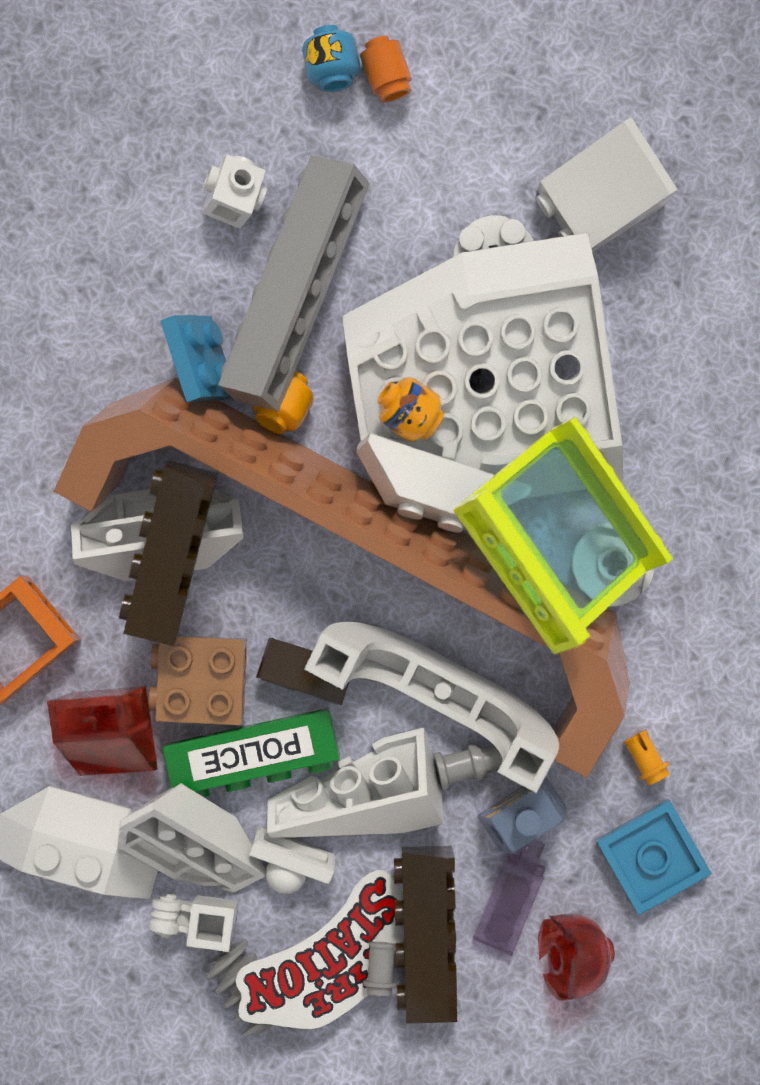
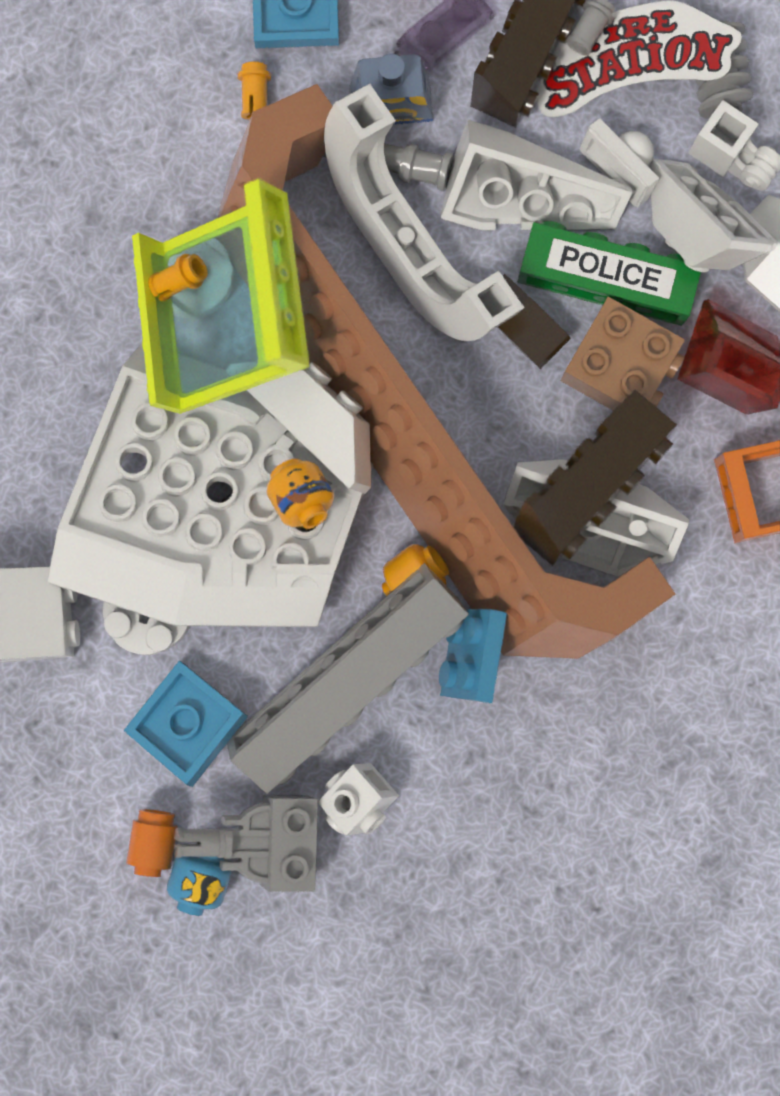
camera: 150 degrees left, 5 degrees down
(291, 114) = (271, 844): none -> light grey brick
(410, 179) = (185, 723): none -> dark azure plate
(606, 547) = (186, 273): none -> light orange pin

